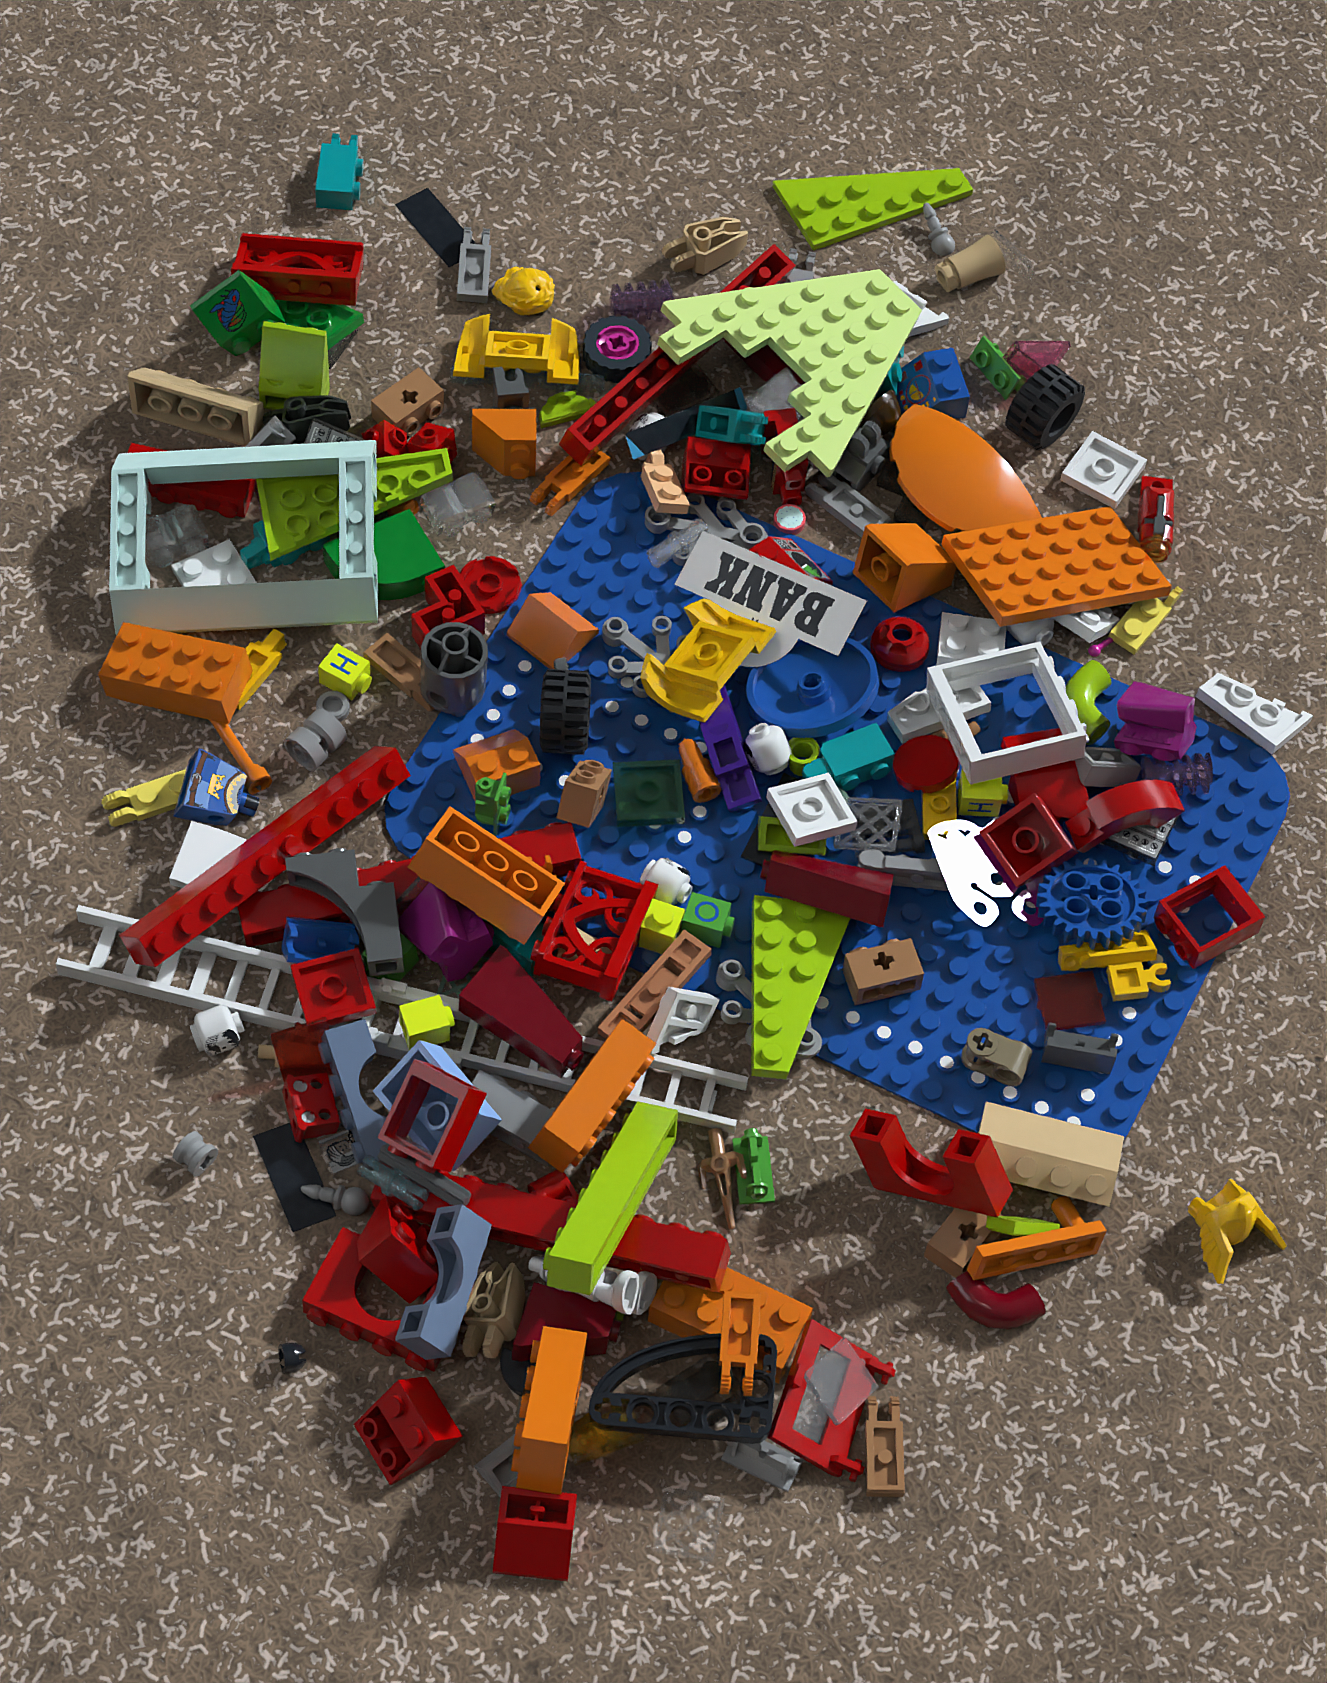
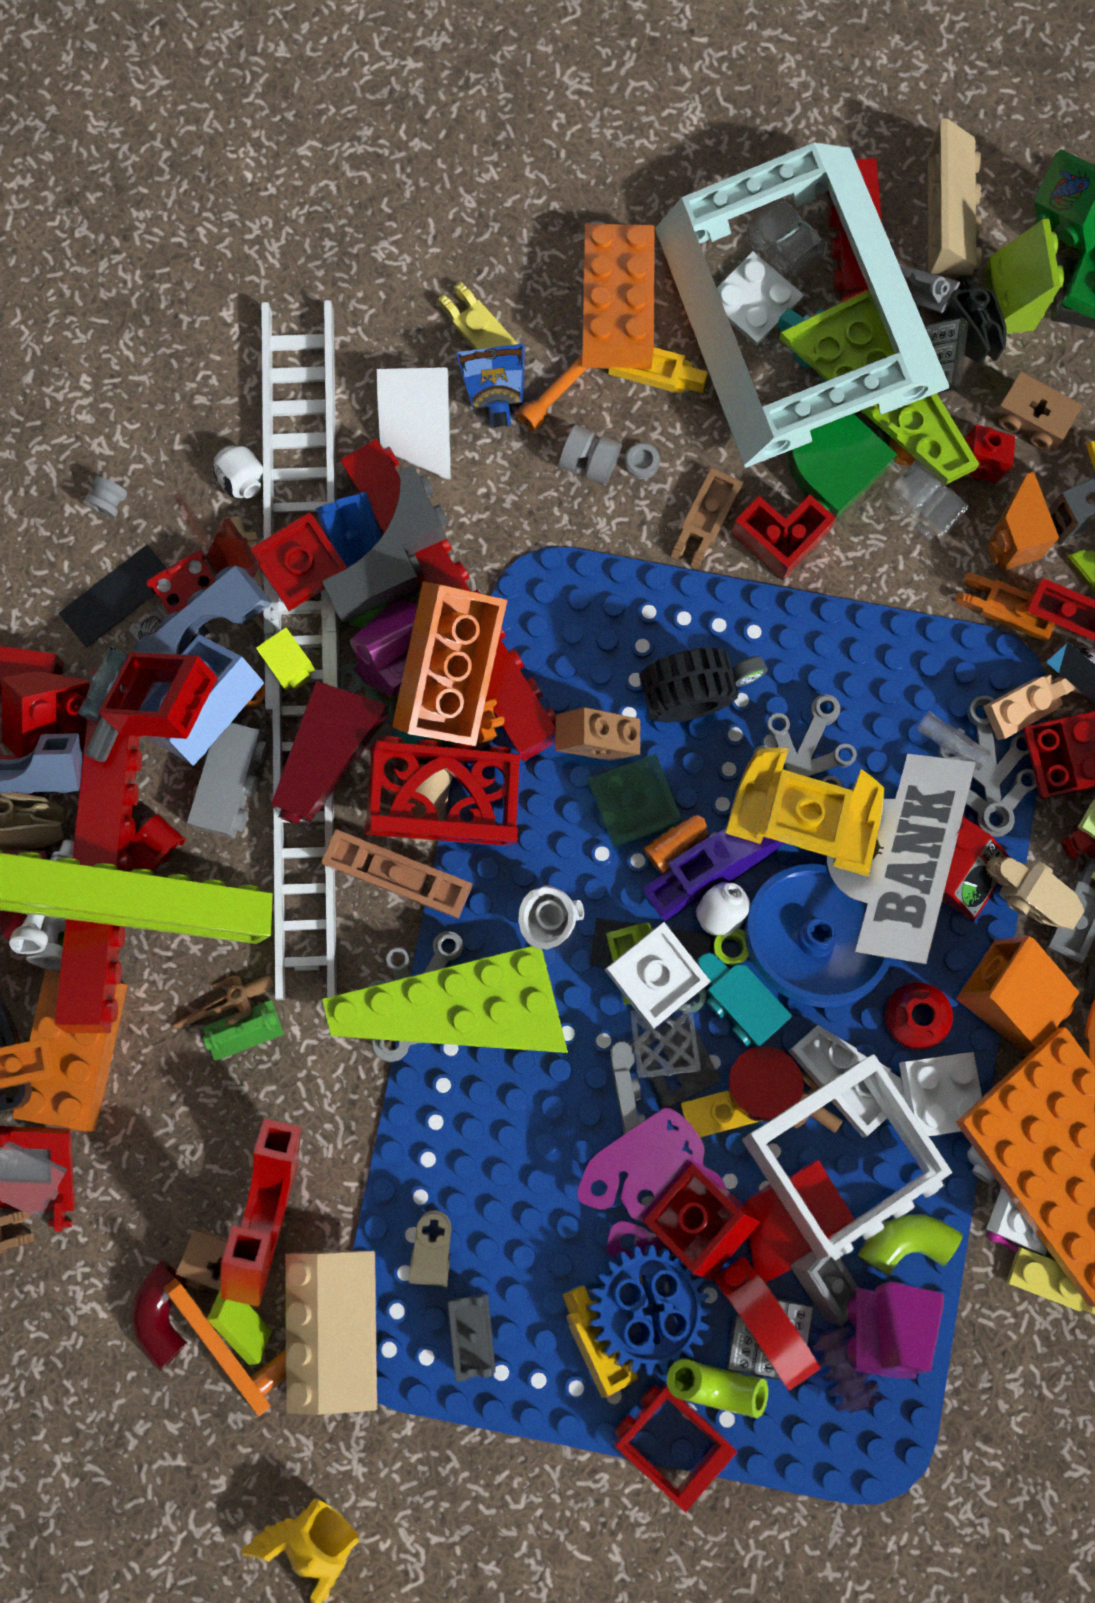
camera: 80 degrees right, 20 degrees up
(263, 856) = (431, 449): red brick -> none
(345, 672) = (681, 457): neon yellow brick -> none
(352, 1200) = (100, 641): light grey bar -> none
(389, 439) = (971, 404): red brick -> none
(453, 668) = (703, 556): dark grey cylinder -> none
(490, 594) = (836, 573): red tile -> none
(492, 802) = (559, 651): bright green hinge -> none
(501, 753) = (617, 638): orange slope -> none
(550, 629) = (805, 644): orange slope -> none
(594, 1097) = (238, 846): orange brick -> none
(660, 926) = (474, 859): neon yellow brick -> none
(672, 880) = (533, 850): white head -> none
(681, 1015) = (379, 908): white wing -> none
(708, 919) = (499, 904): bright green brick -> none
(734, 878) = (548, 916): none -> white helmet
(789, 519) = (1044, 849): tile -> none
(825, 524) = (1036, 892): none -> tan hinge
(829, 886) = (573, 1022): dark red slope -> none
(882, 971) = (477, 1091): medium nougat brick -> none
(982, 797) = (742, 1160): neon yellow brick -> none
(1070, 1000) = (530, 1312): clear red piece -> none
(1133, 982) = (569, 1376): yellow plate -> none
(1170, 869) = (718, 1388): none -> lime cylinder
(1256, 717) = (969, 1439): white wing -> none

